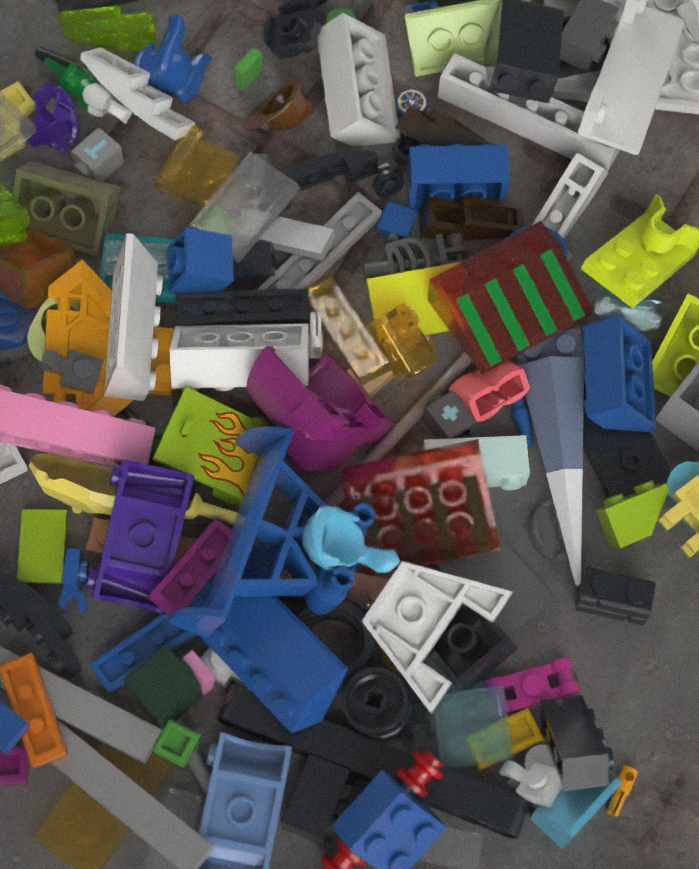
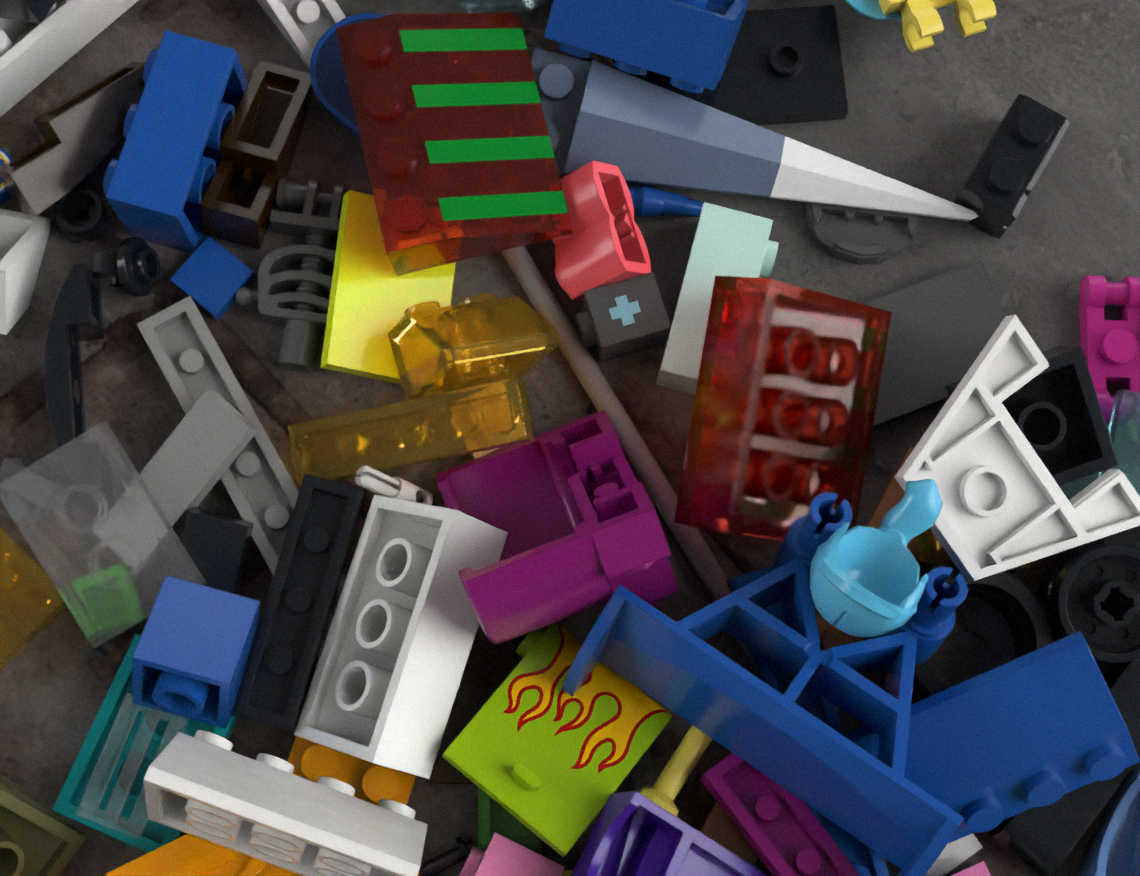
camera: 75 degrees left, 10 degrees up
(632, 517) = (885, 87): lime slope -> none

